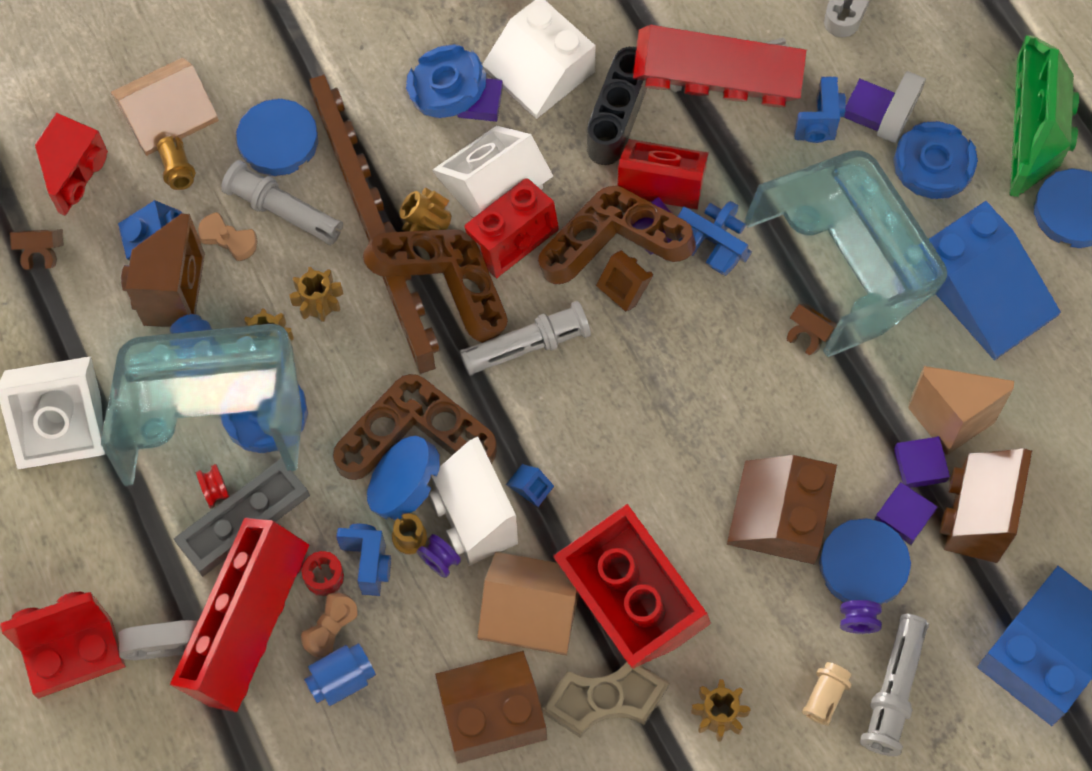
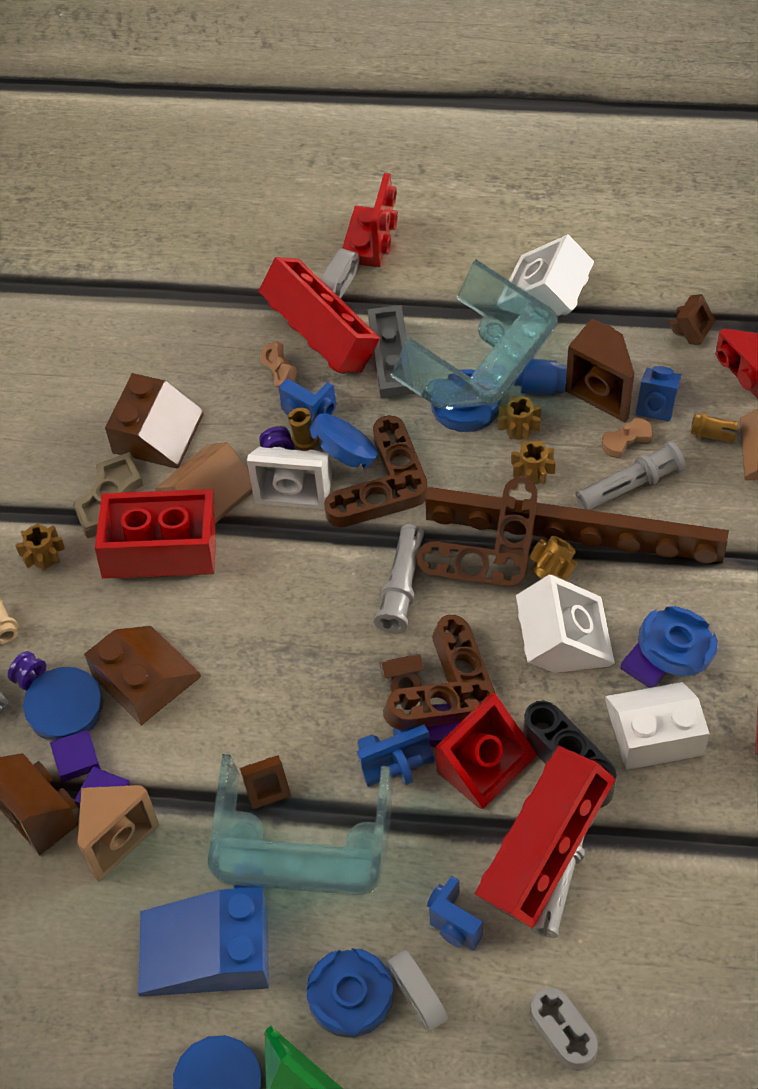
camera: 125 degrees right, 10 degrees down
(212, 485) = (428, 338): red bush -> none
(277, 137) = (700, 501): blue tile -> none
(316, 560) = (320, 371): red bush -> none
(339, 674) = (240, 354): blue brick -> none
(513, 226) = (500, 608): red bracket -> none
(530, 484) = (290, 529): blue piece -> none
(868, 104) = (443, 969): dark purple tile -> none

